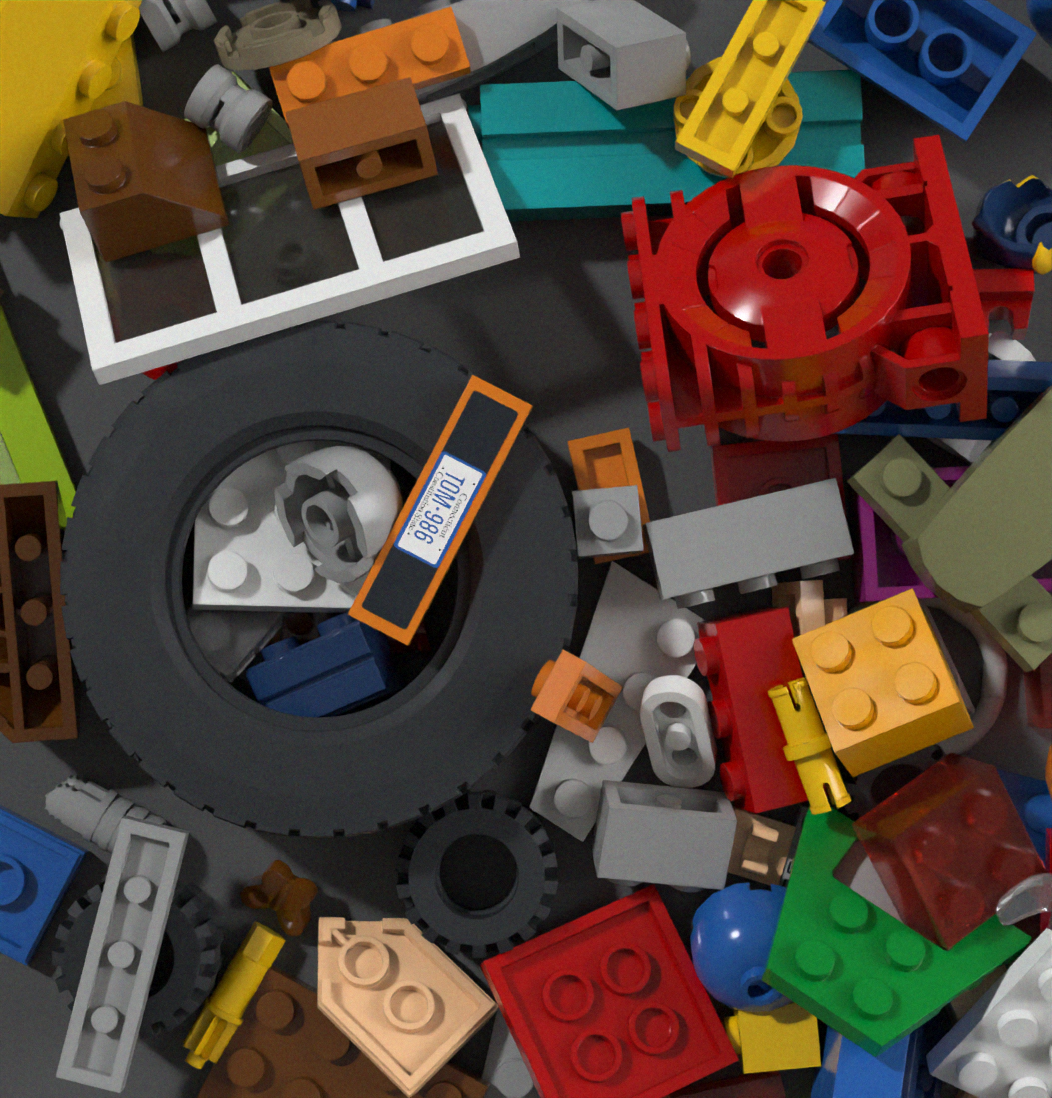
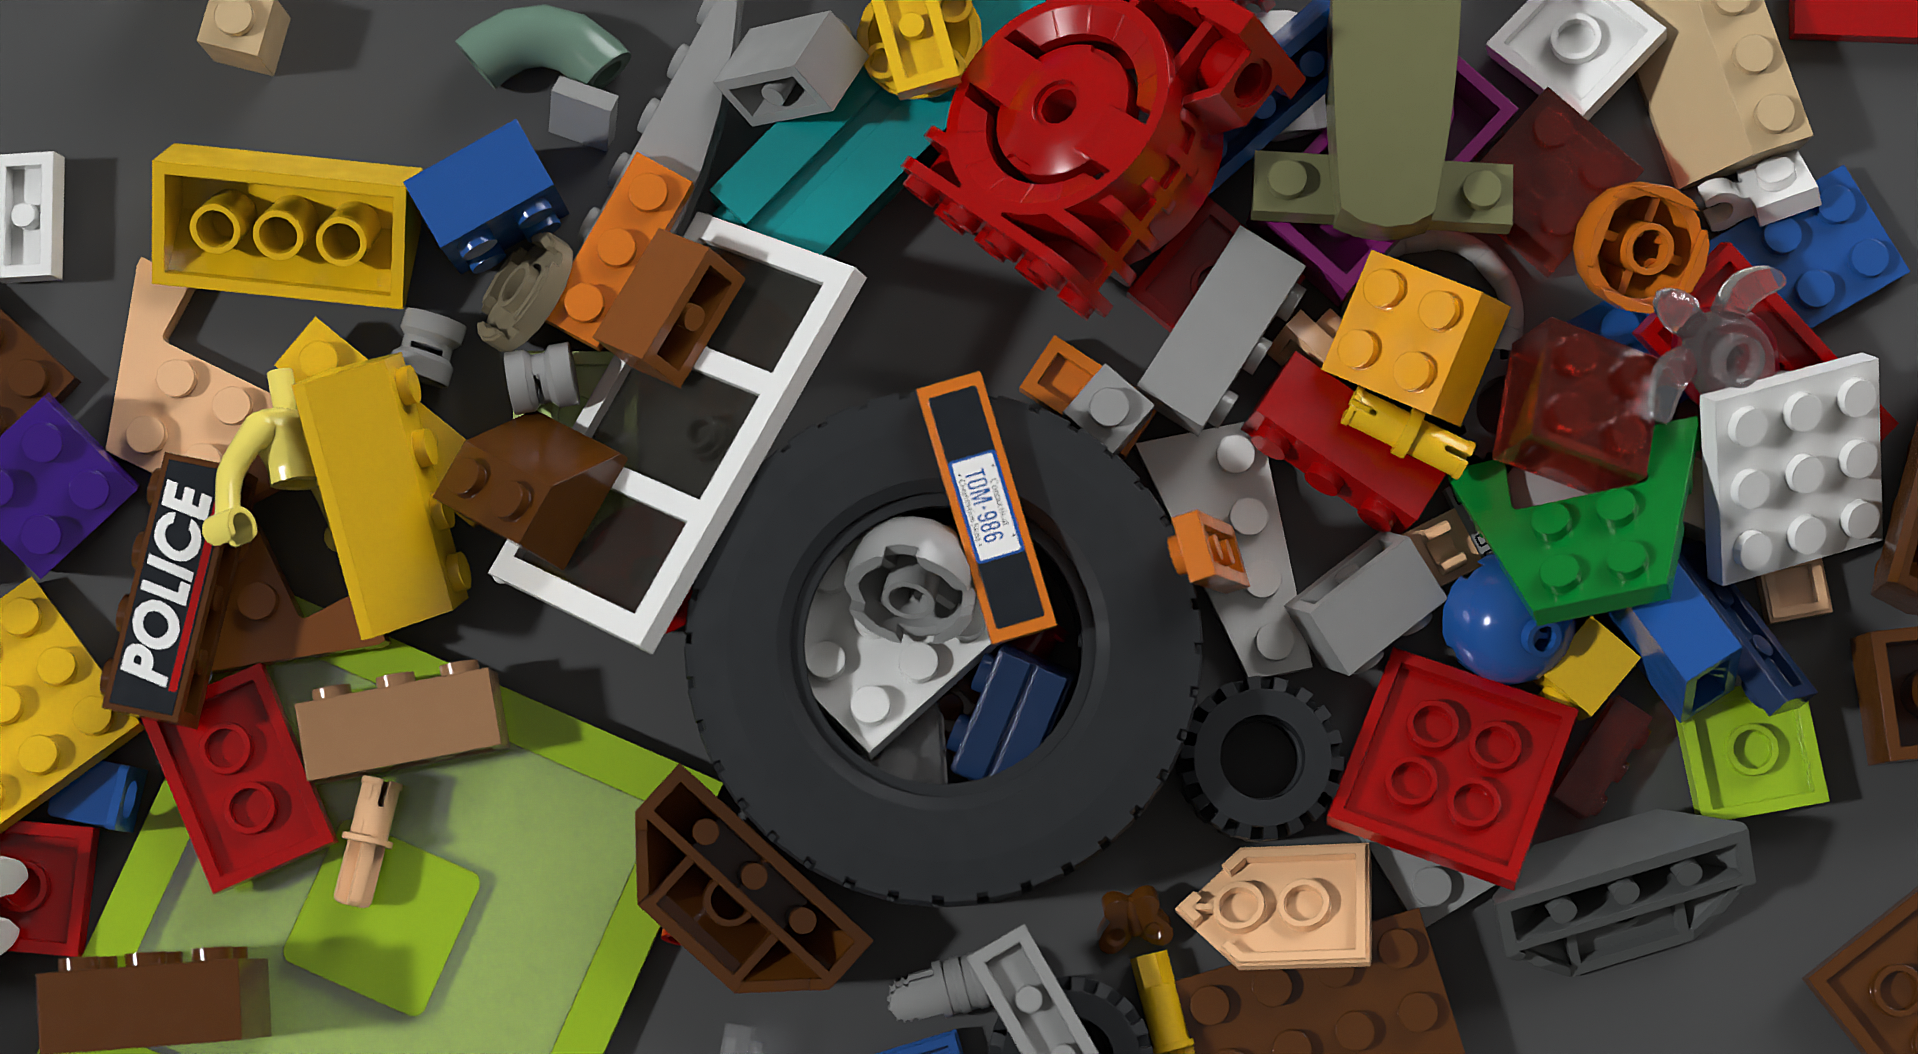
camera: 45 degrees left, 5 degrees down
(674, 719) = (1301, 514): white plate -> none

